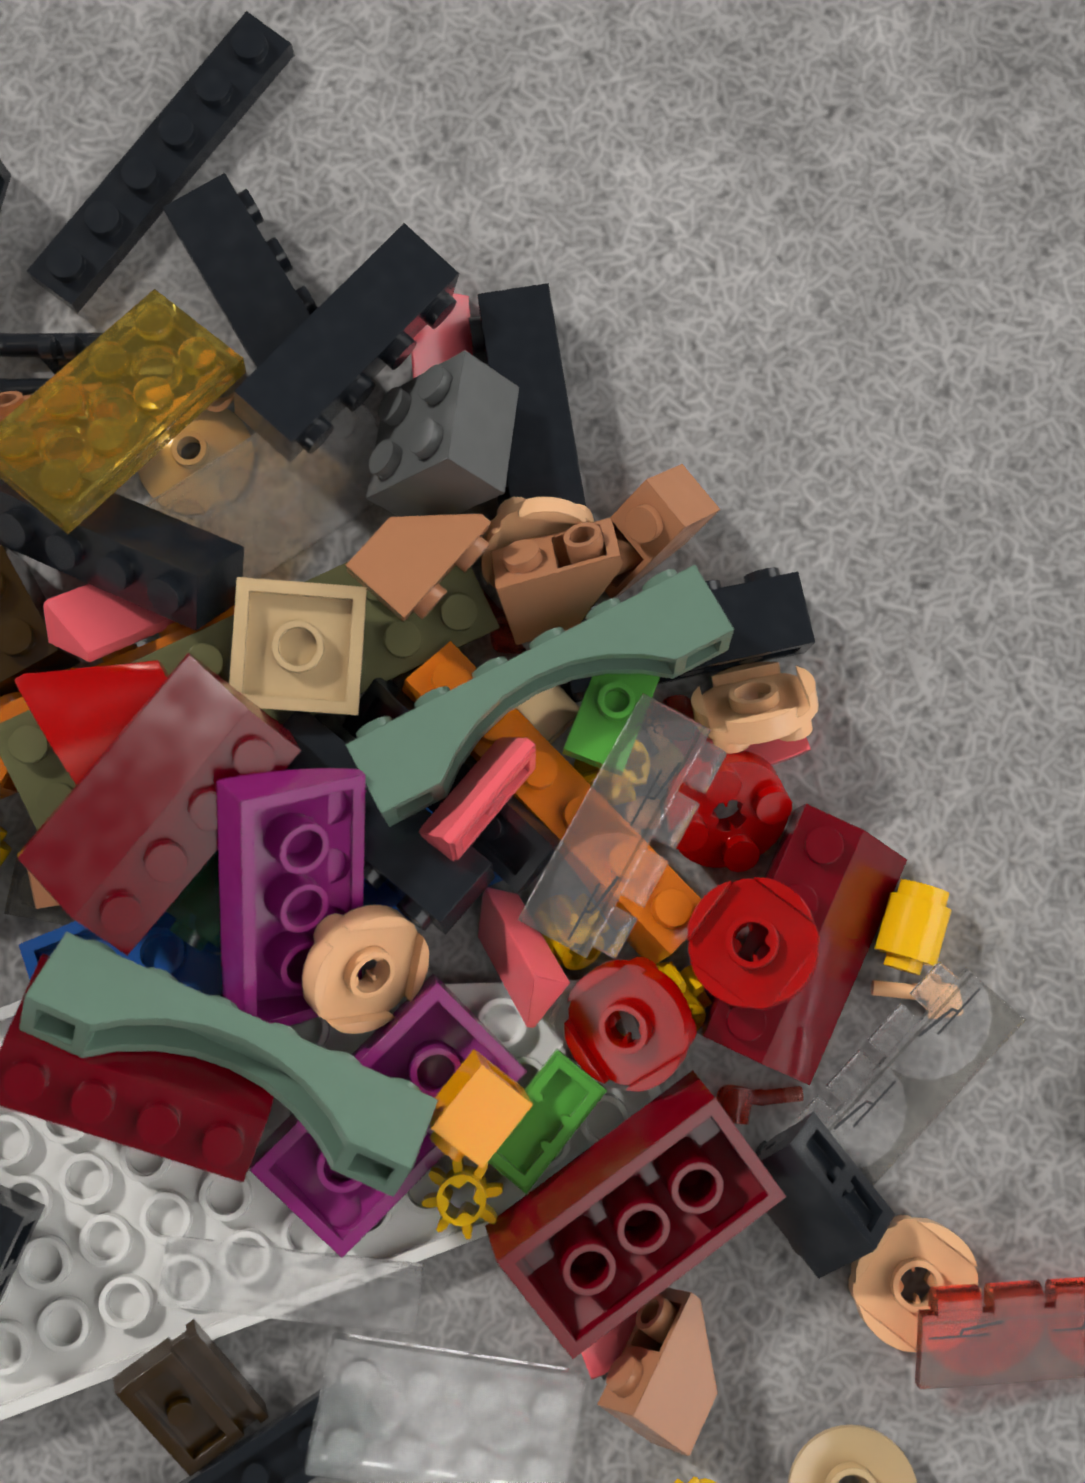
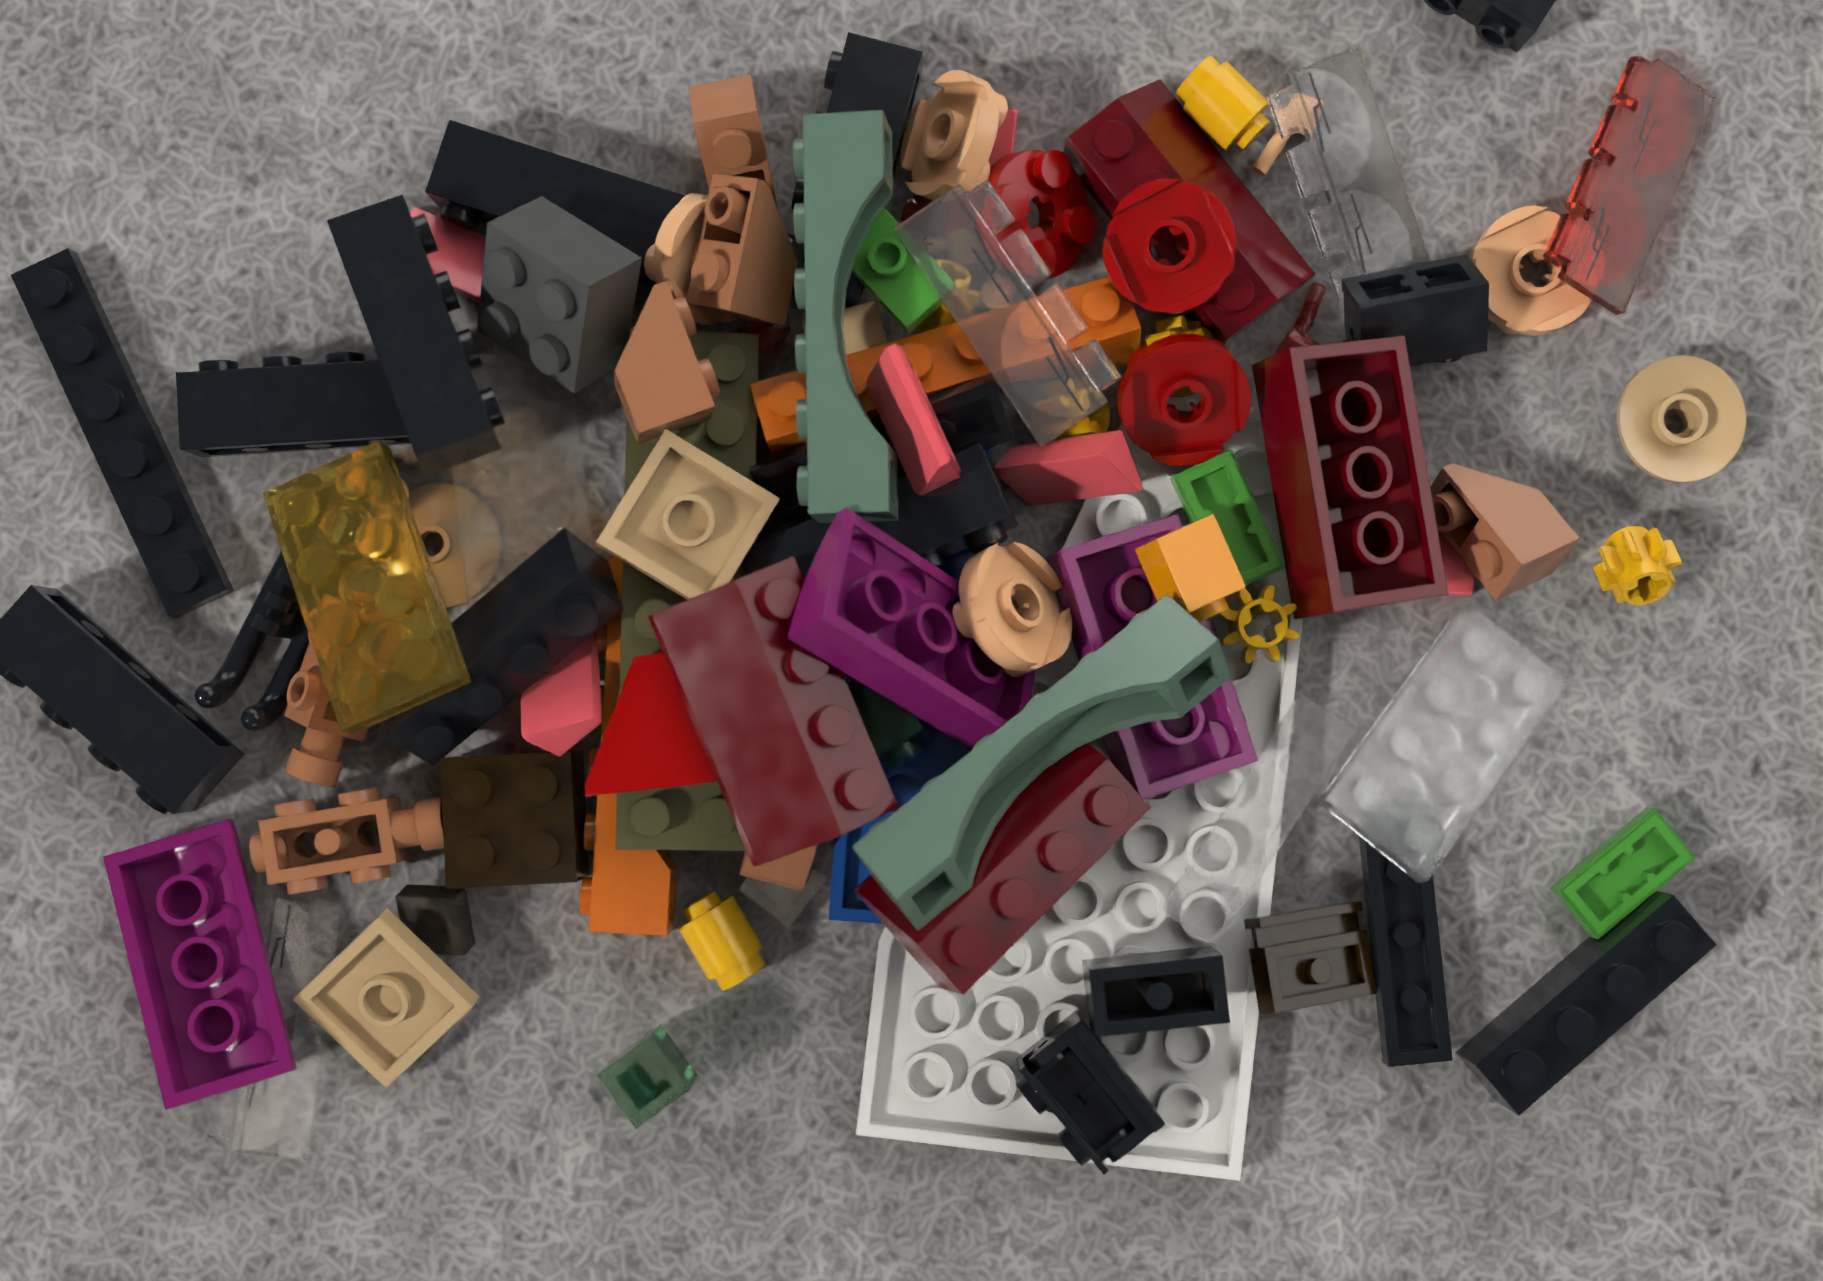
camera: 65 degrees left, 5 degrees up
(83, 1272) = (1155, 991): none -> black brick

